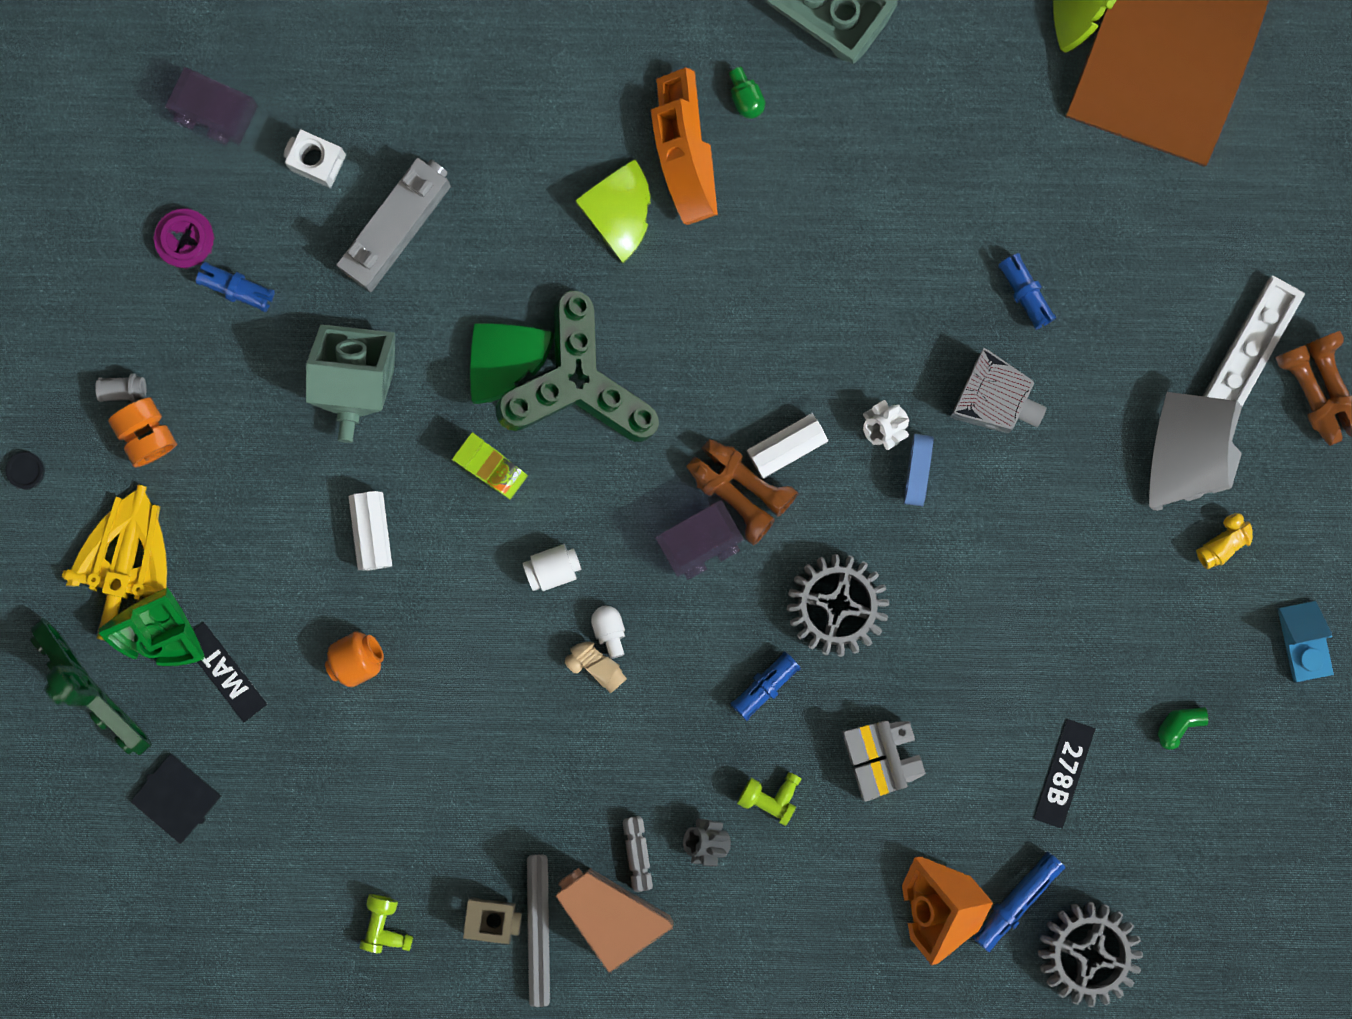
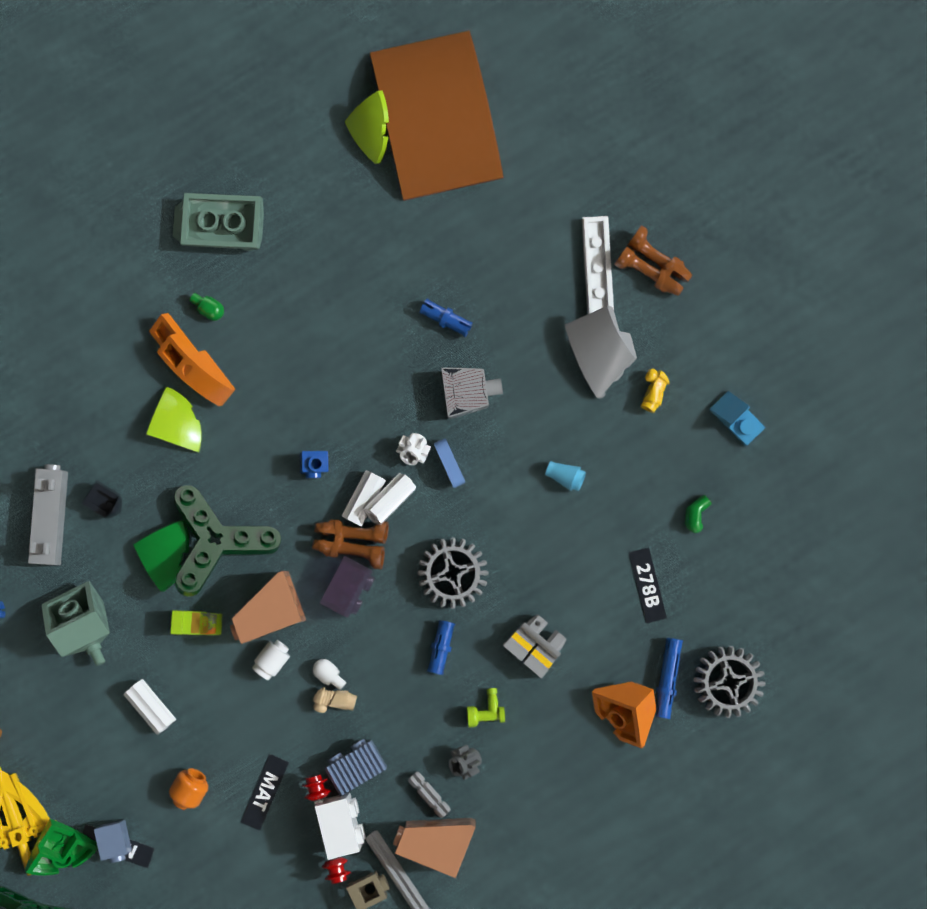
camera: 35 degrees left, 0 degrees up
(224, 663) = (113, 841): none -> sand blue brick
(441, 722) = (264, 792): none -> black sticker
(472, 247) = (103, 500): none -> black plate
(505, 819) = (338, 826): none -> white brick
(570, 762) = (355, 767): none -> sand blue brick
(587, 507) = (269, 610): none -> nougat slope
(754, 365) = (313, 463): none -> blue plate
(819, 466) = (389, 499): none -> white axle
(1052, 577) = (567, 475): none -> medium azure cone

